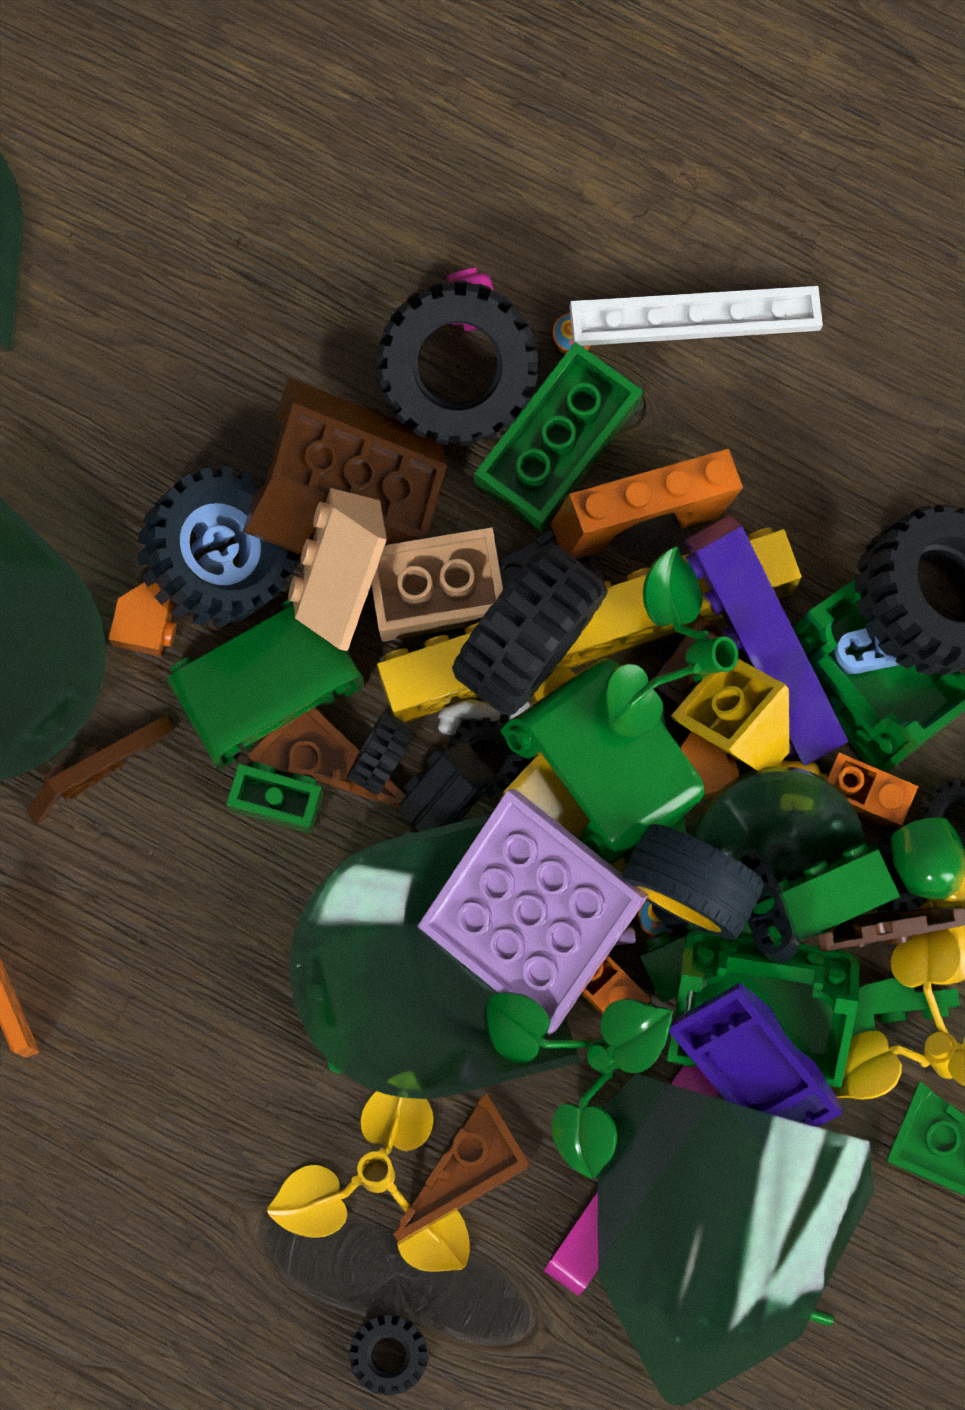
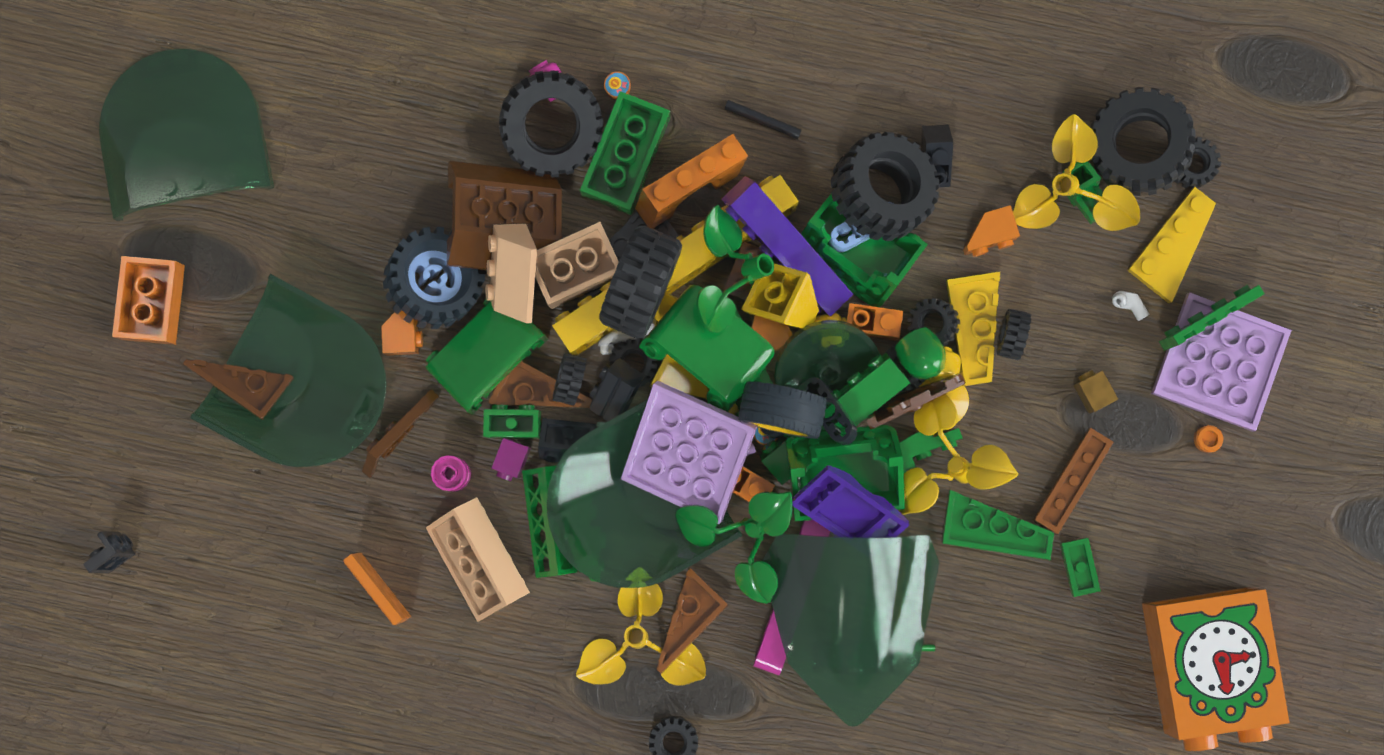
camera: 15 degrees left, 5 degrees up
(161, 849) = (450, 473): none -> dark pink wheel
(164, 991) = (477, 559): none -> light nougat slope
(257, 853) = (510, 459): none -> magenta brick
(288, 1028) = (557, 562): none -> green fence
(339, 836) = (559, 436): none -> black bracket
(695, 315) = (690, 54): white plate -> none
(780, 442) = (763, 119): none -> black bar

